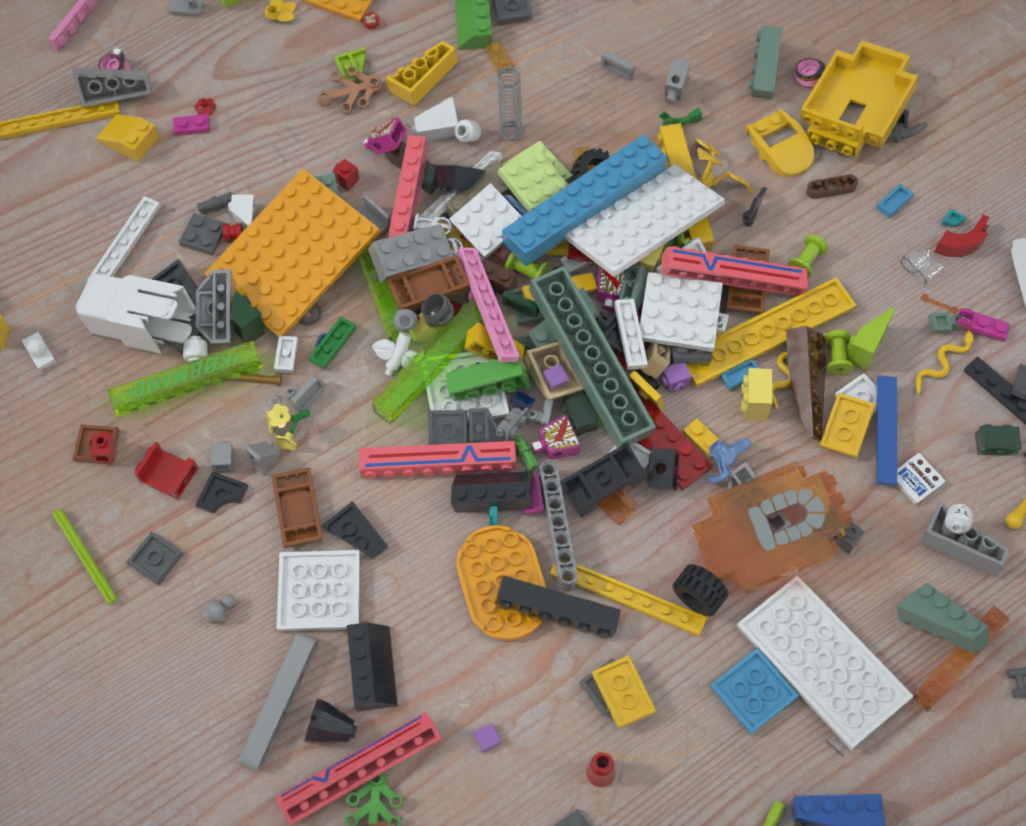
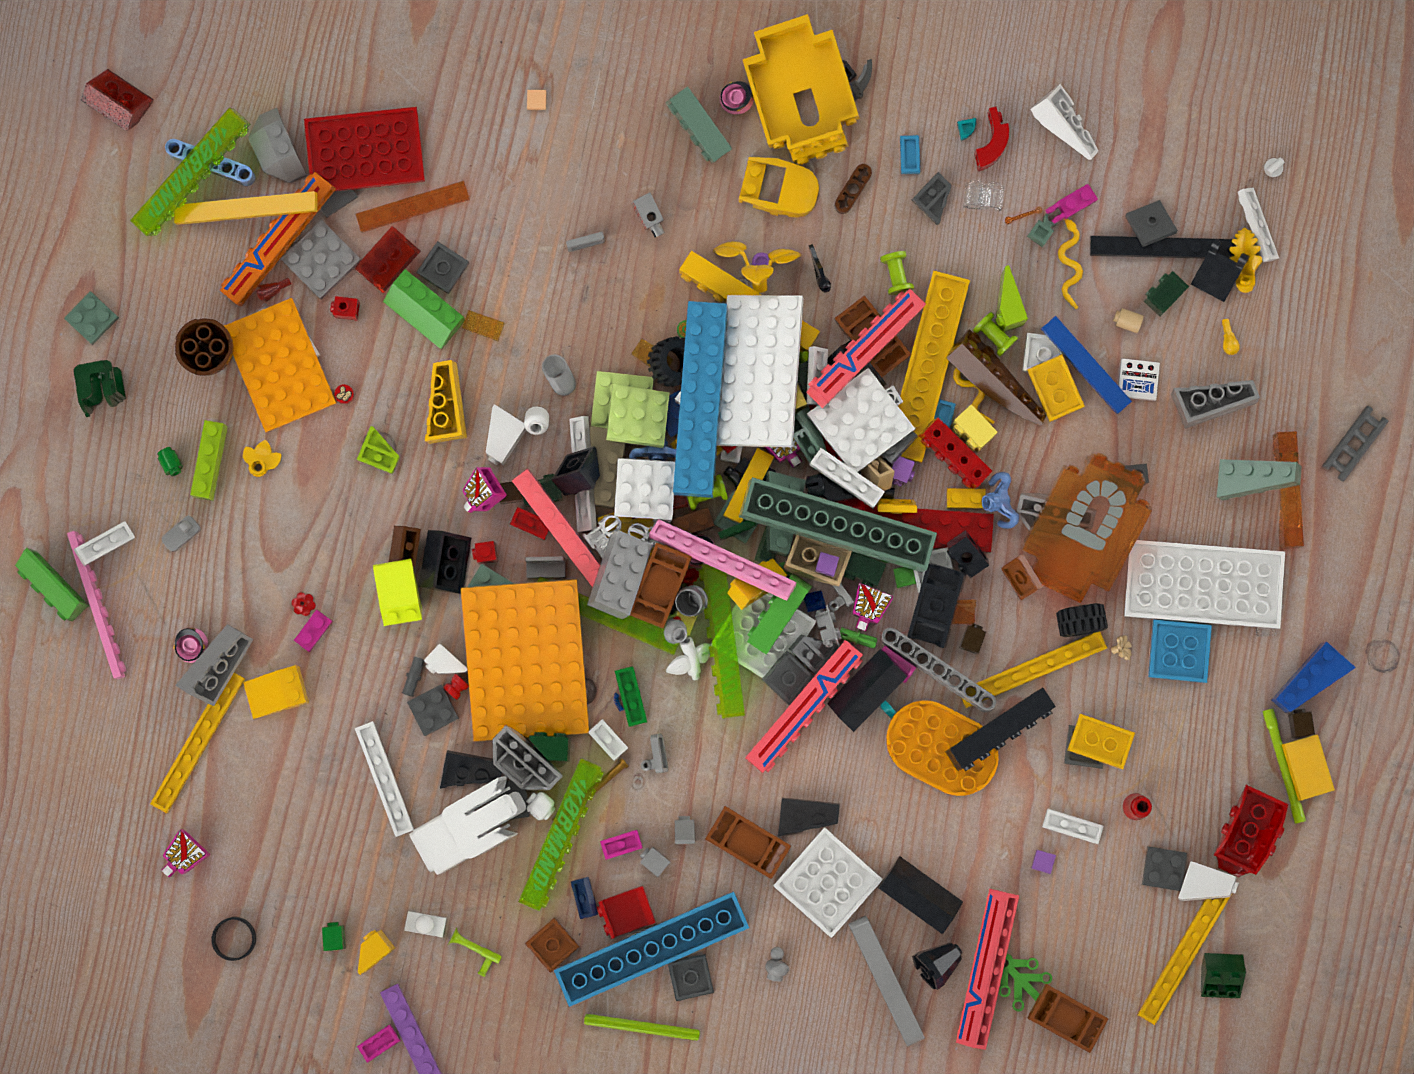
camera: 45 degrees left, 20 degrees up
(44, 375) = (488, 954): none -> lime piece
(103, 447) = (566, 943): red brick -> none
(152, 508) = (651, 948): none -> dark azure brick
(155, 429) = (584, 897): none -> dark blue plate
(215, 425) = (621, 844): none -> dark pink plate
(220, 491) = (679, 886): black tile -> none
(264, 142) = (397, 592): none -> neon yellow slope
(279, 417) = (672, 794): light yellow plant -> none
(301, 124) = (404, 544): none -> reddish brown brick
(316, 155) = (444, 561): none -> black slope
(352, 89) = (404, 472): nougat plant -> none
(391, 180) = (529, 523): none -> red plate
(537, 735) = (1072, 826): none -> white tile
(602, 445) = (904, 577): none -> bright green plate
(606, 530) = (972, 638): none -> dark brown brick
(687, 520) = (1021, 577): none -> dark orange tile
(694, 116) = (678, 255): green piece -> none
(712, 644) = (1122, 647): none -> tan plant
(718, 172) = (760, 259): none -> medium lavender tile
(726, 398) = (955, 453): none -> red brick
(884, 237) = (933, 197): none -> dark grey wing
(950, 432) = (1128, 320): none -> tan brick
(959, 518) = (1202, 392): white head -> none

